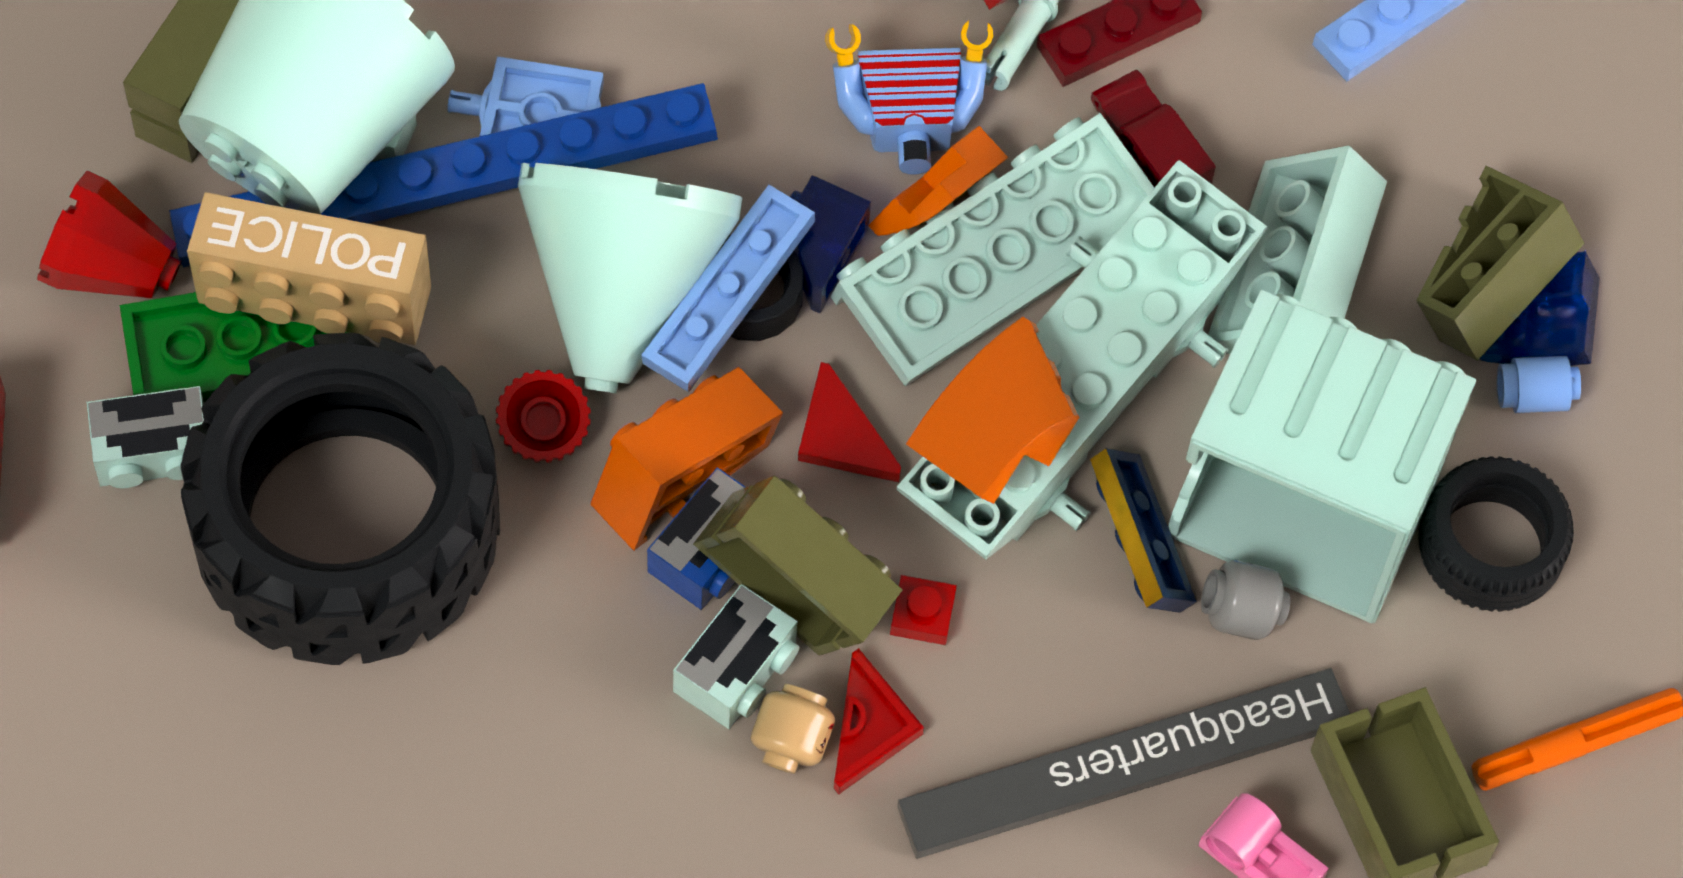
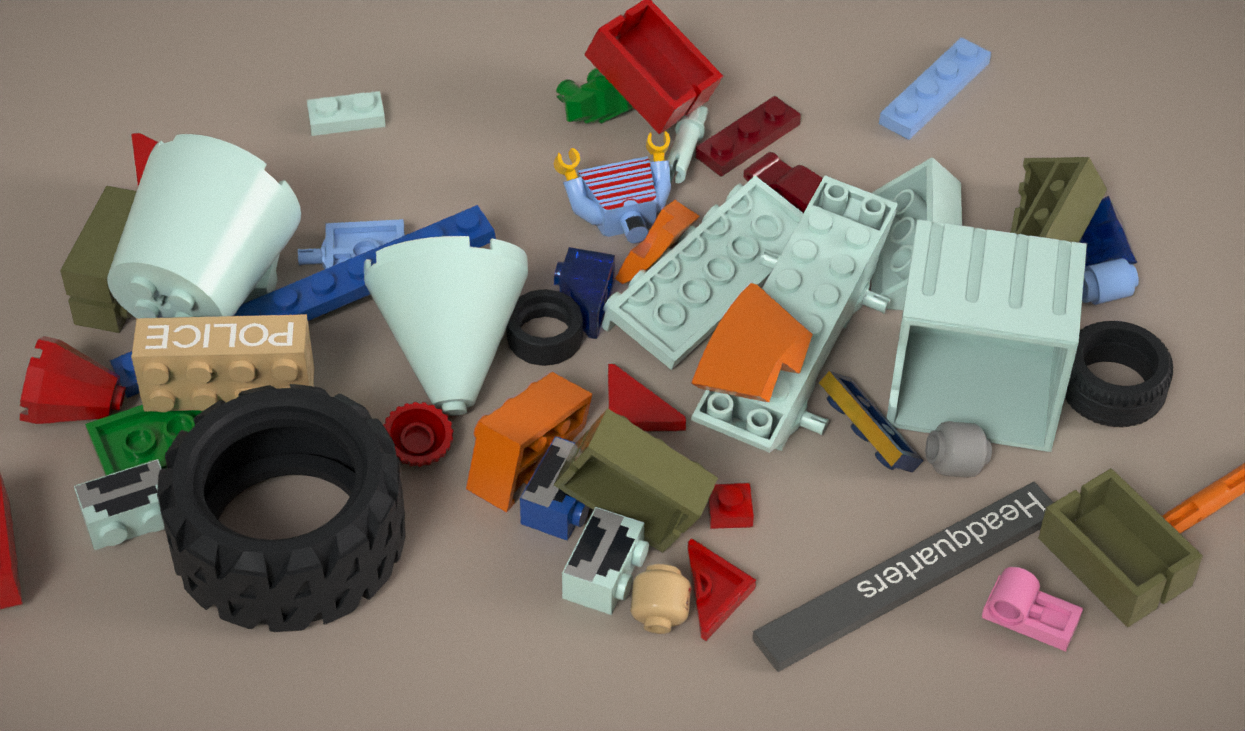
camera: 10 degrees left, 15 degrees down
(728, 288) = (530, 322): light blue plate -> none

